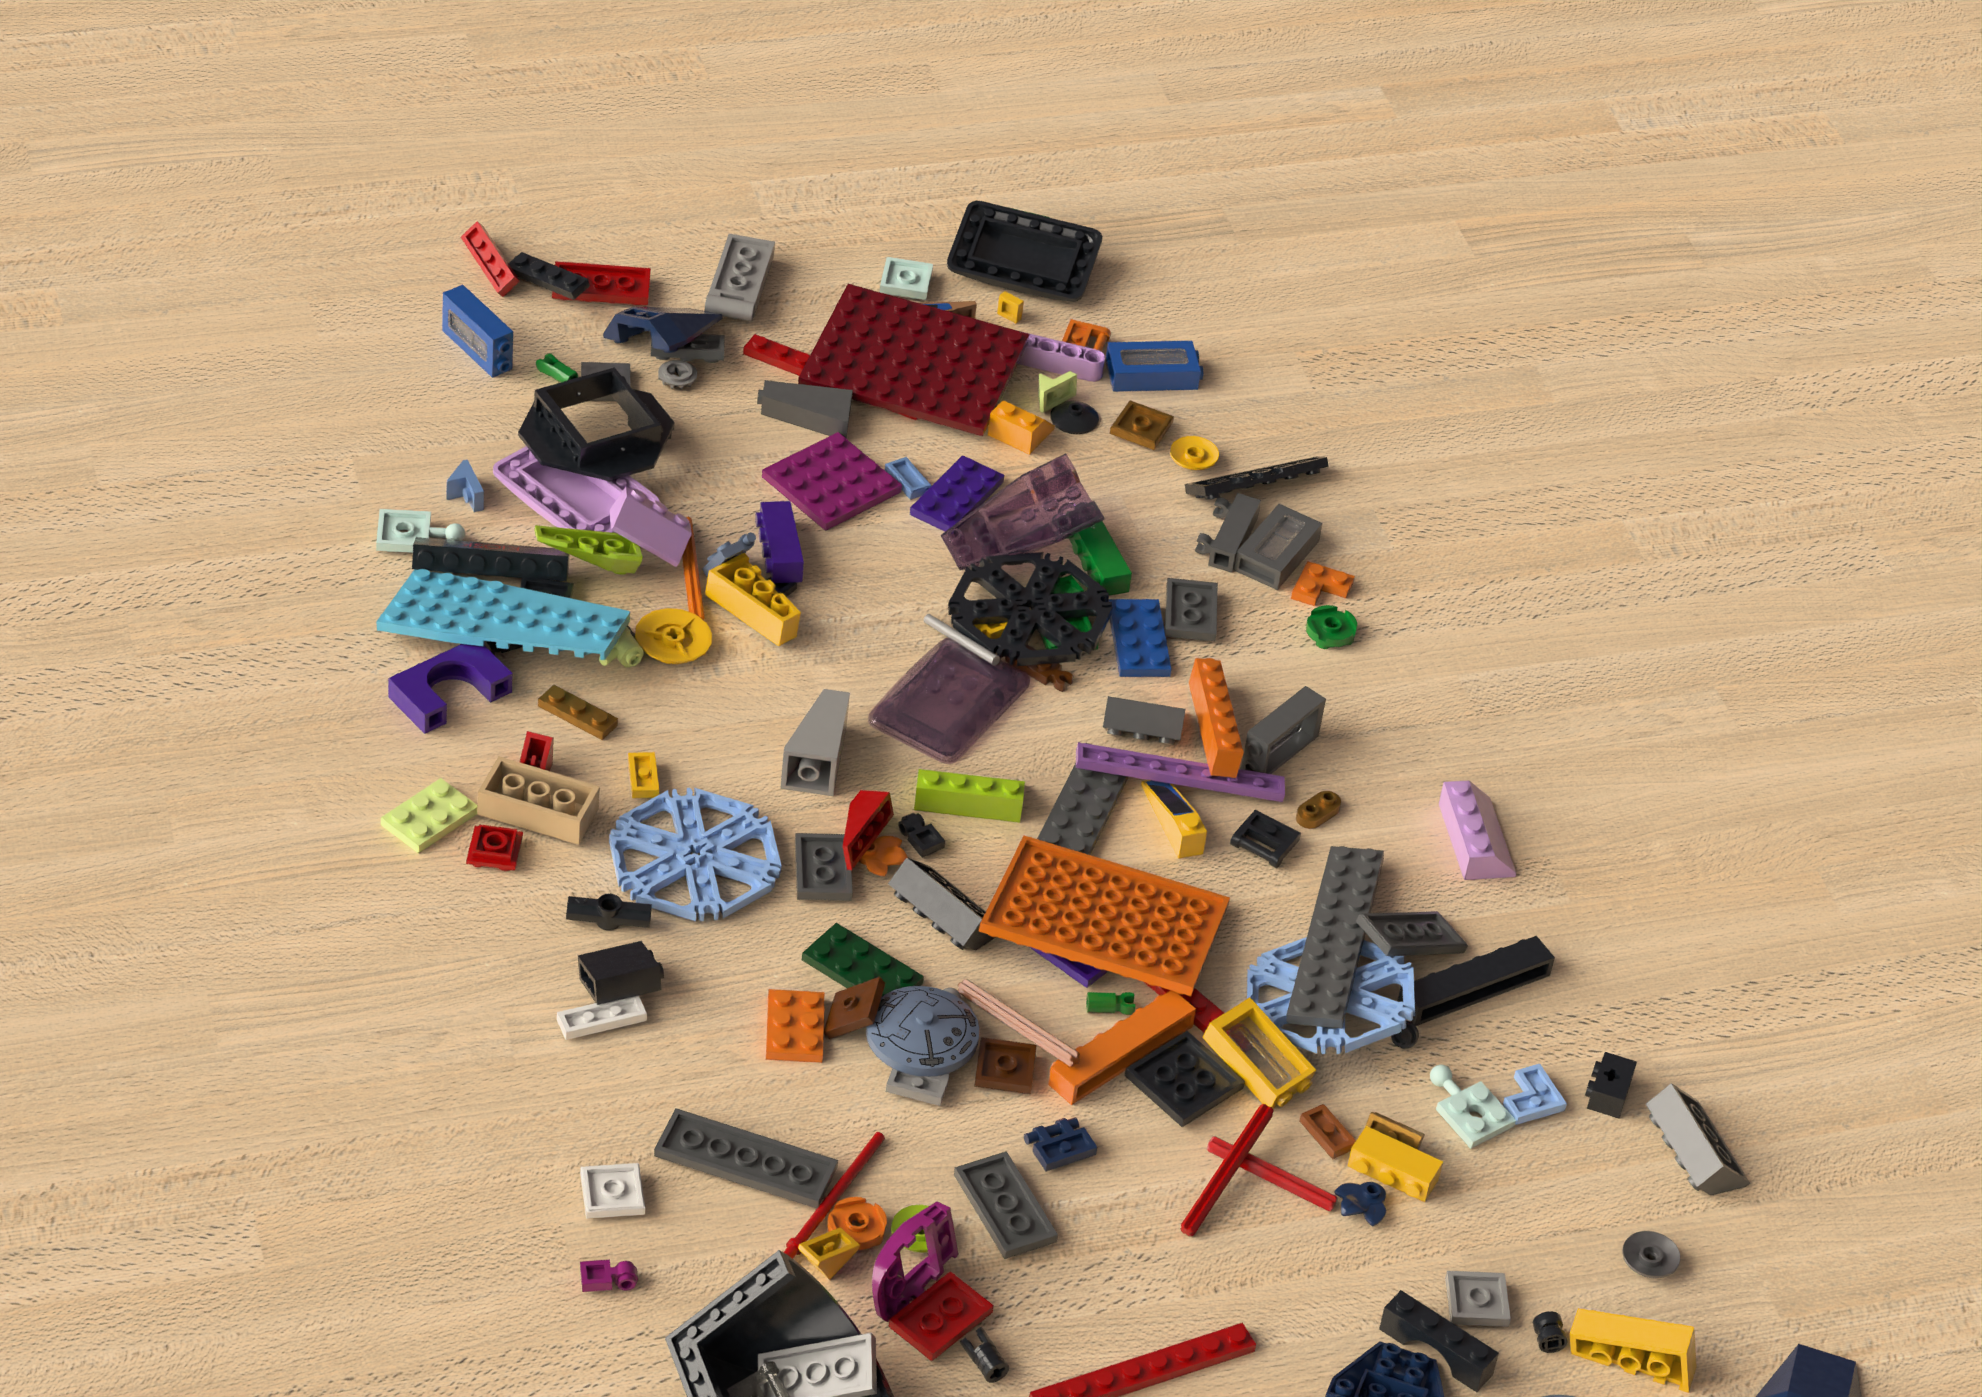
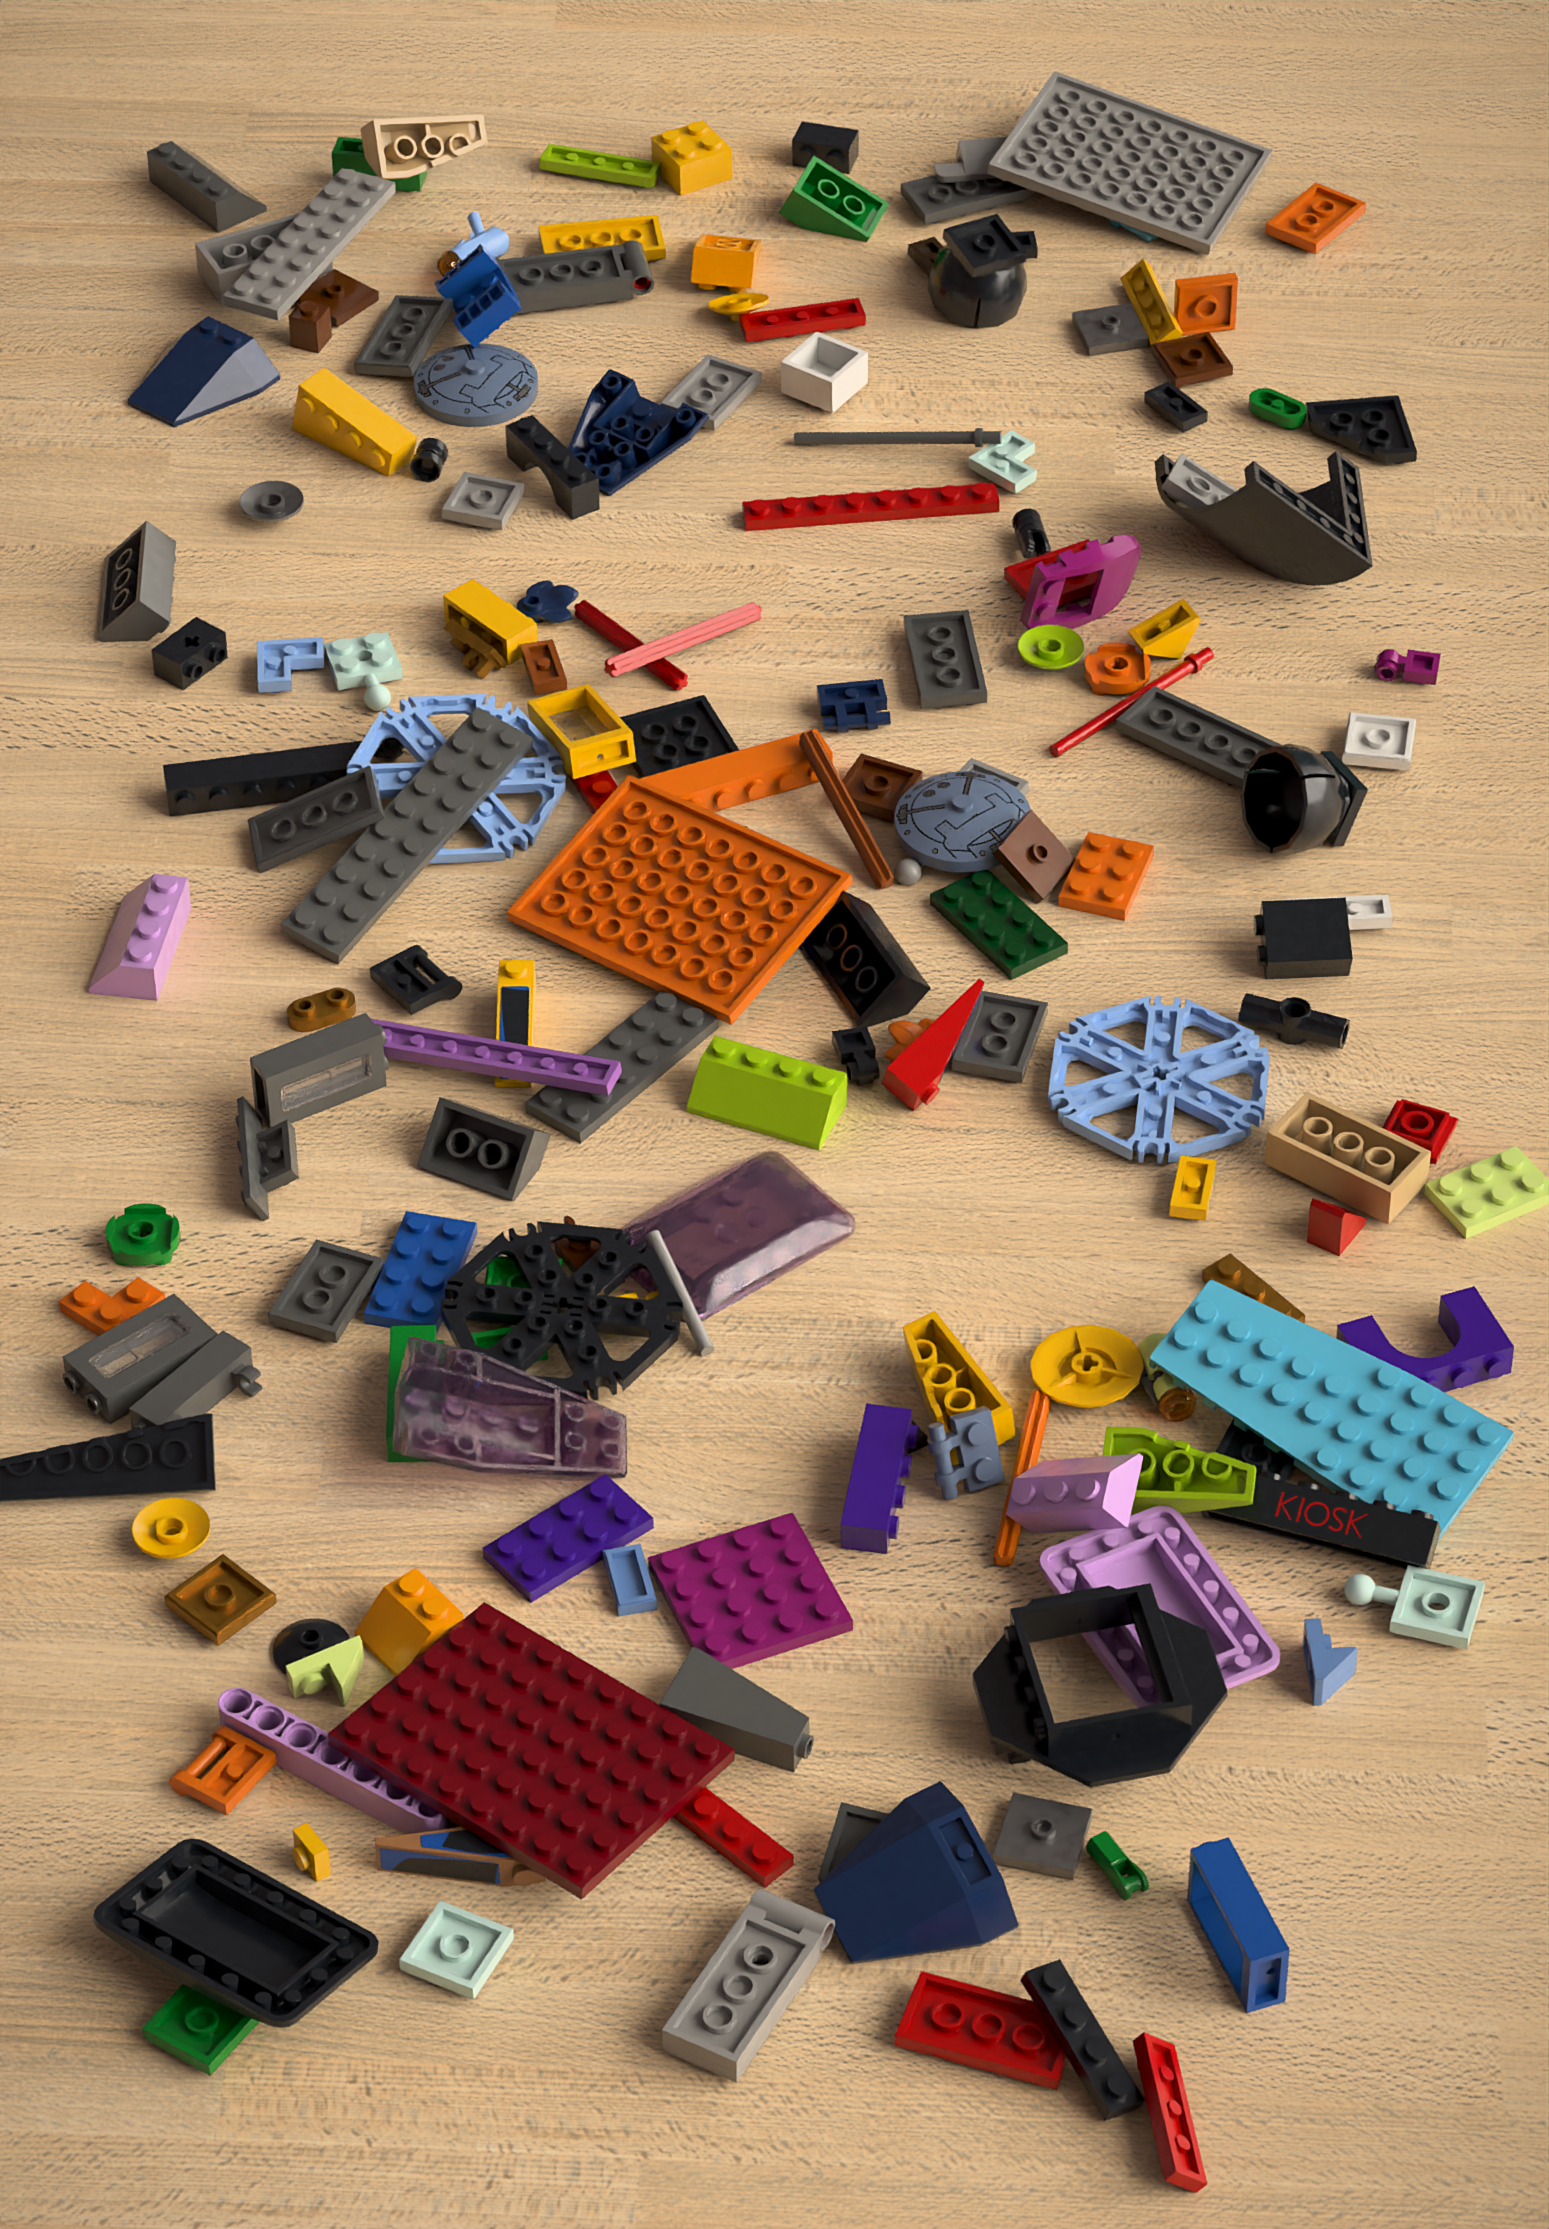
camera: 155 degrees left, 0 degrees up
(655, 1074) = (1301, 801): none -> black plate
(816, 746) = (950, 1158): light grey slope -> none
(1153, 366) = (139, 1697): blue piece -> none
(1215, 717) = (396, 1104): orange brick -> none
(1279, 676) = (266, 1157): none -> dark grey bracket

